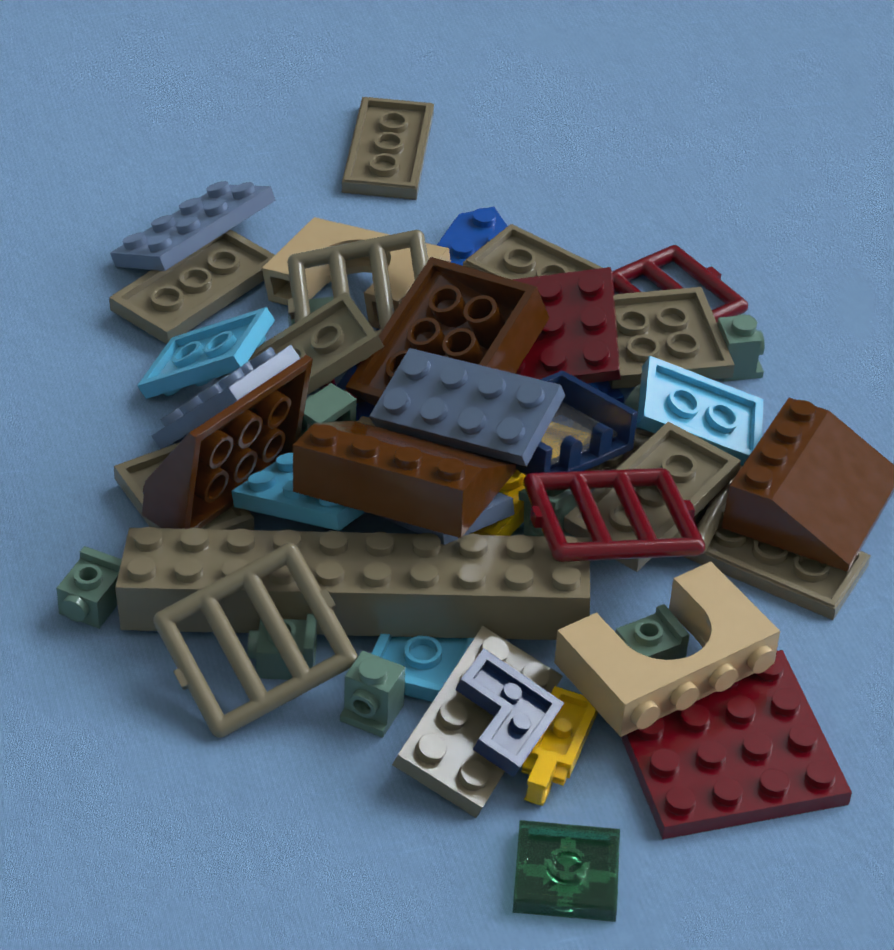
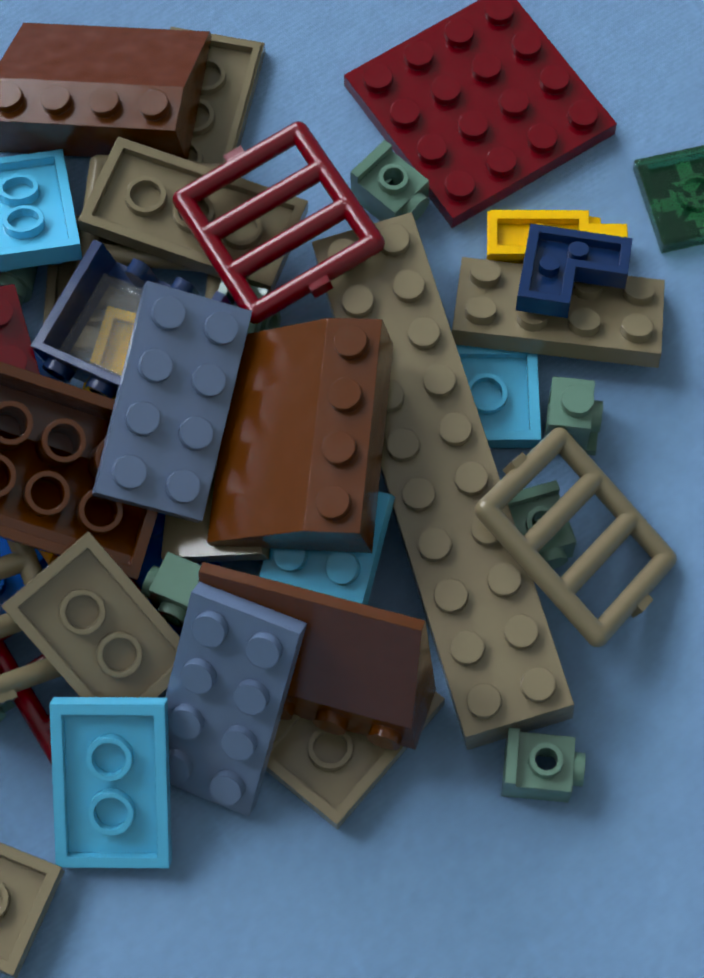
camera: 105 degrees left, 25 degrees up
(638, 689) = (389, 96): tan arch -> none

